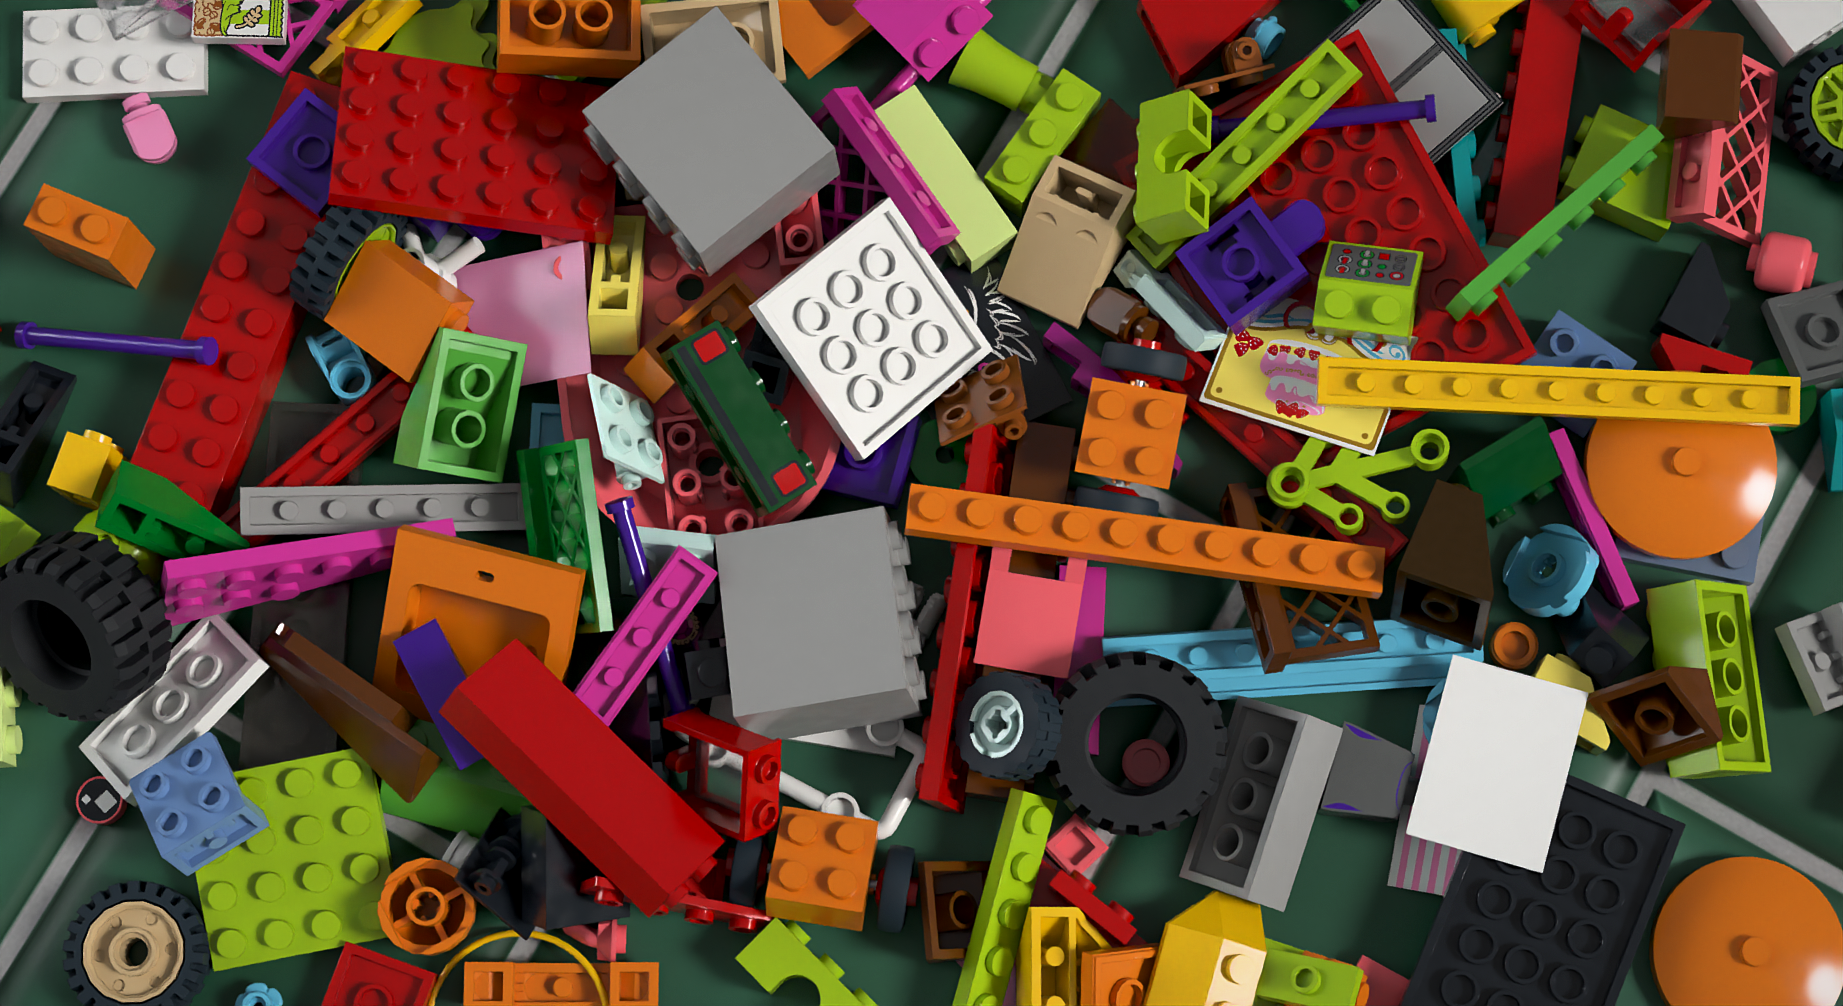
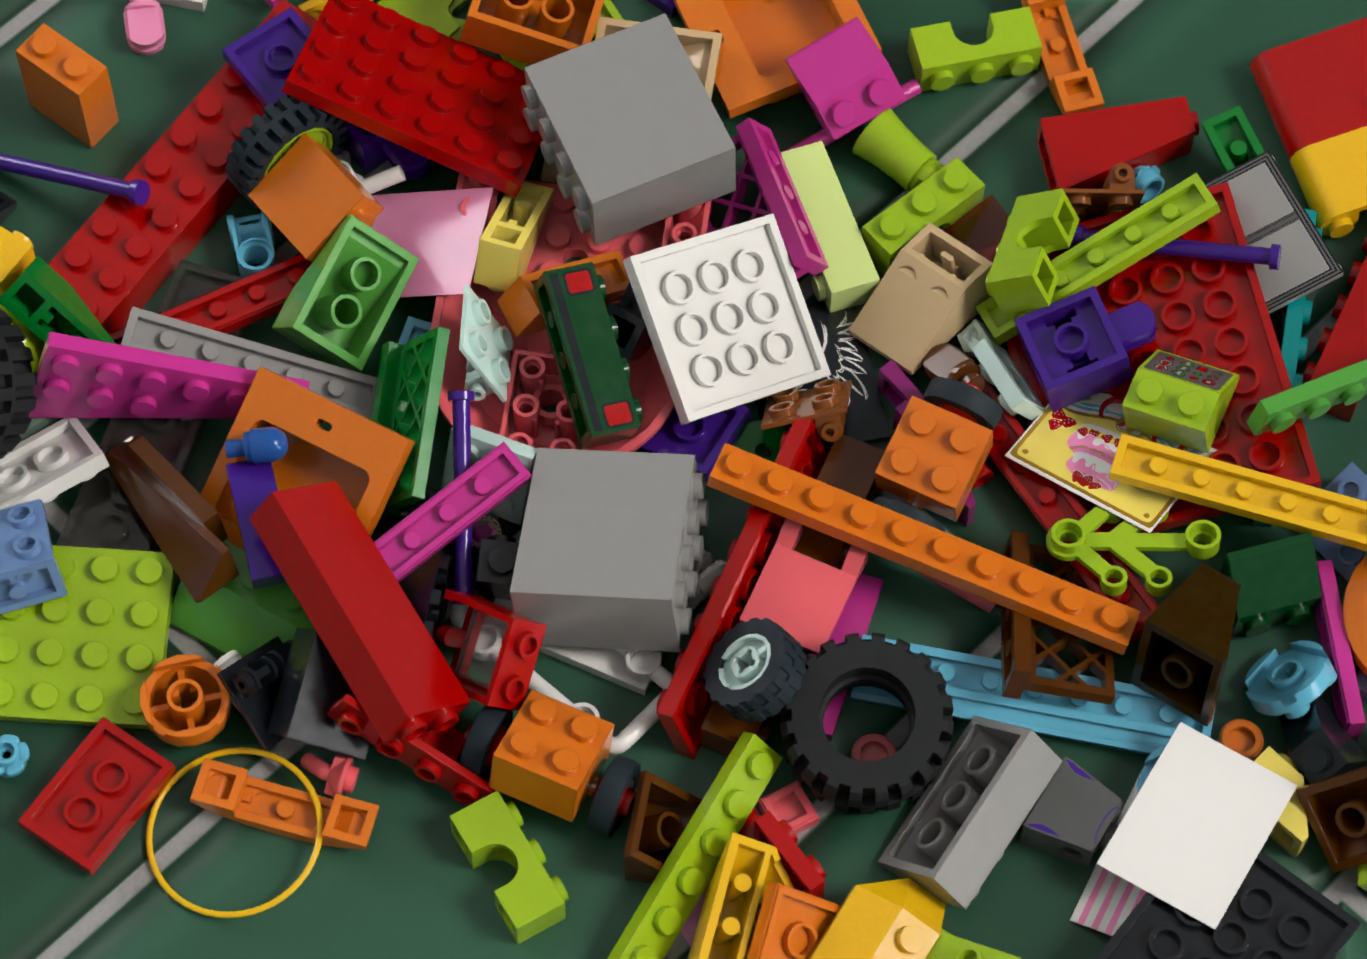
camera: 10 degrees right, 15 degrees down
(422, 615) = (259, 445): none -> blue cylinder

